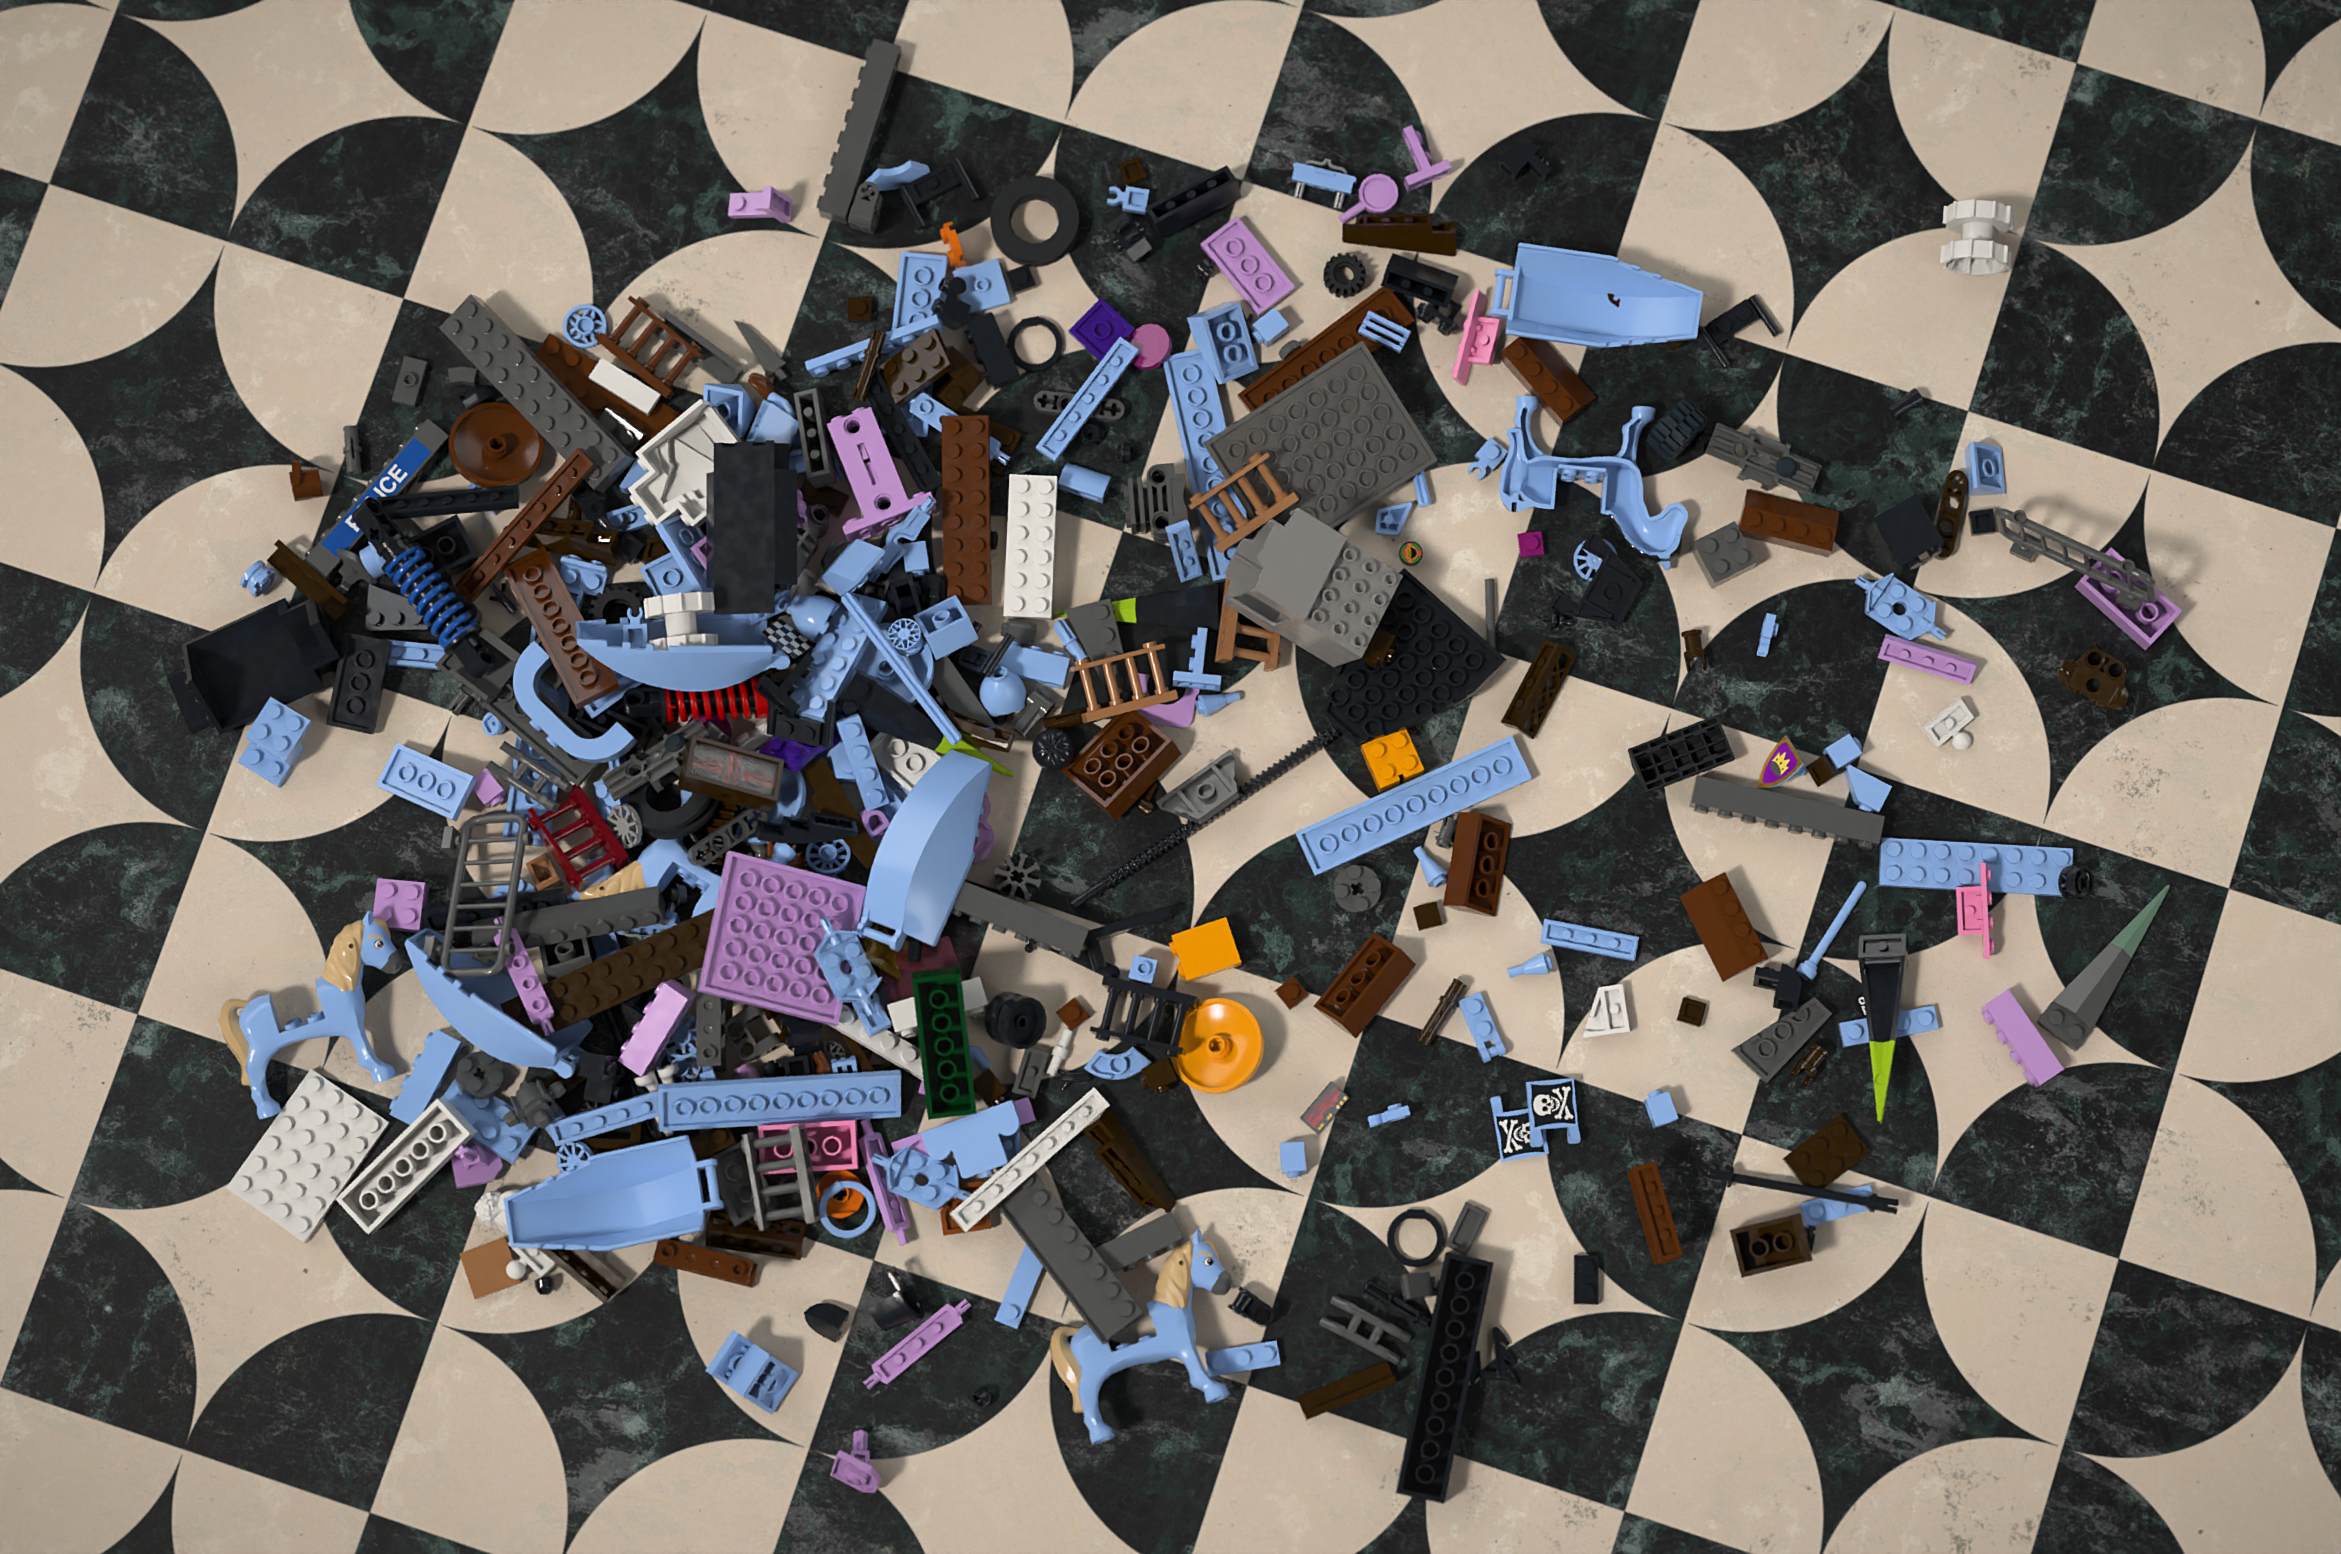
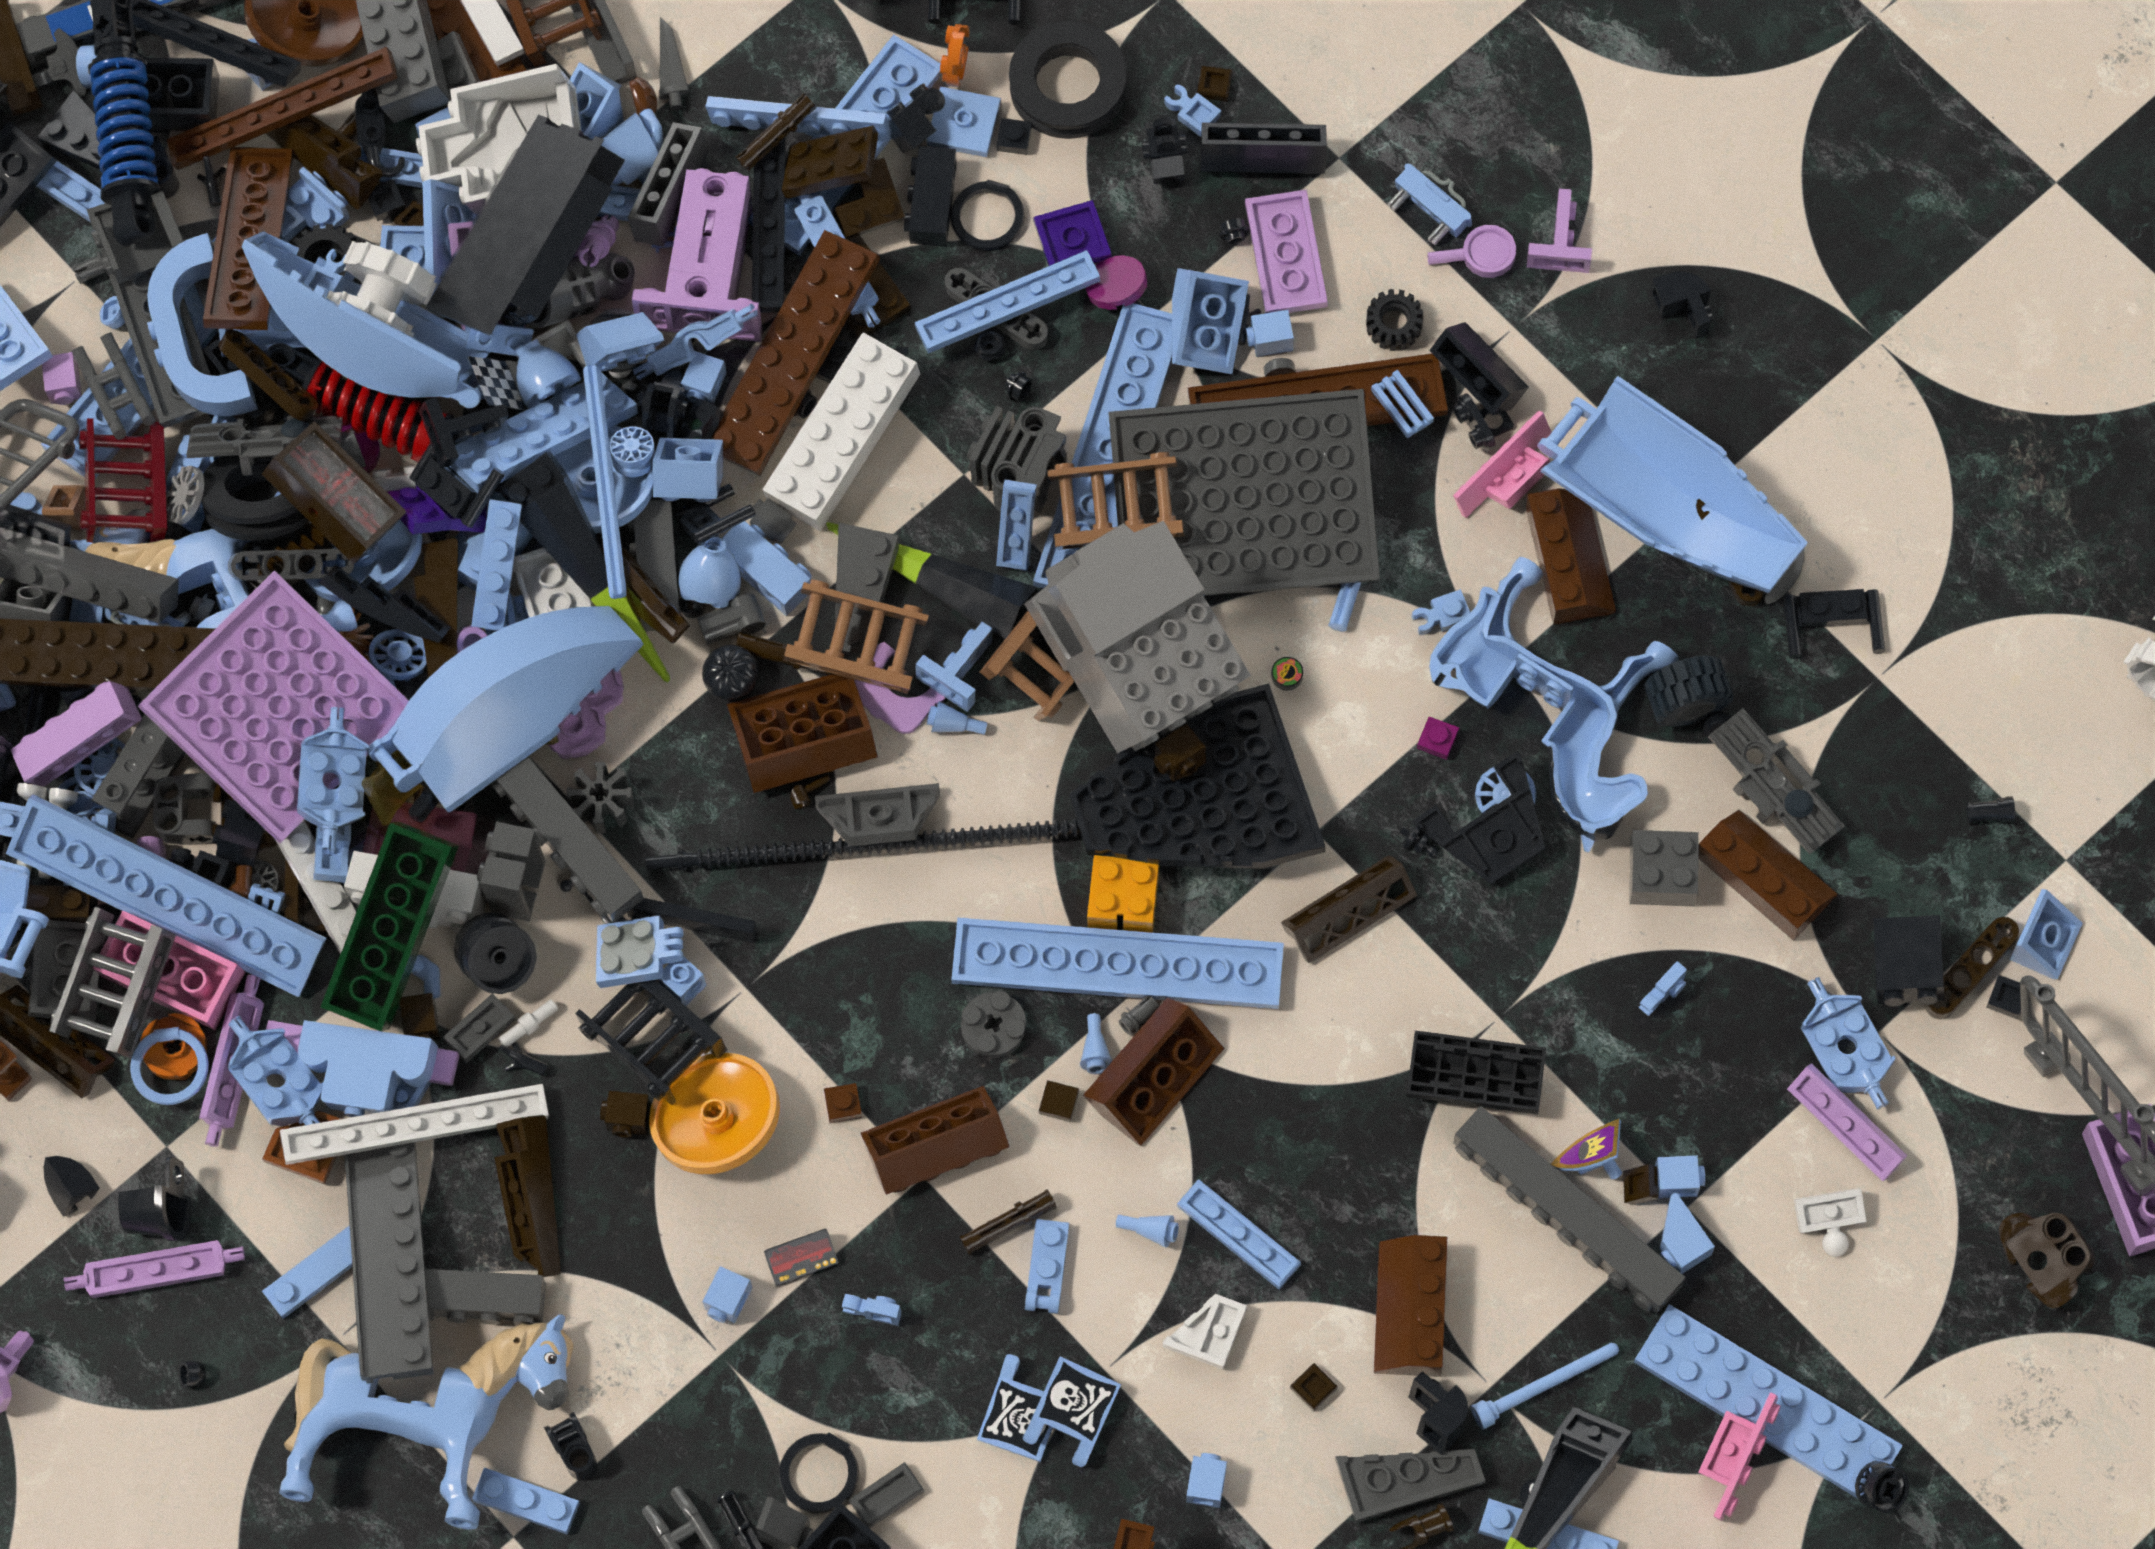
camera: 30 degrees right, 10 degrees down
(660, 722) = (268, 375): none -> dark brown beam
(829, 497) = (648, 264): dark brown plate -> none
(859, 309) = (809, 76): dark brown plate -> none
(996, 961) = (512, 862): none -> dark grey piece
(1069, 640) = (825, 559): light blue axle -> none
(1072, 1014) = (570, 988): reddish brown plate -> none
(1084, 482) = (949, 395): light blue brick -> none
(1105, 969) = (635, 951): none -> piece
(1117, 1066) = (584, 1076): light blue tile -> none
(1205, 950) = (769, 997): light orange brick -> none
(1392, 518) = (1288, 622): light blue piece -> none
(1402, 232) = (1492, 308): dark brown wedge -> none
(1490, 611) = (1341, 793): dark grey bar -> none
(1693, 648) = (1565, 959): dark brown piece -> none

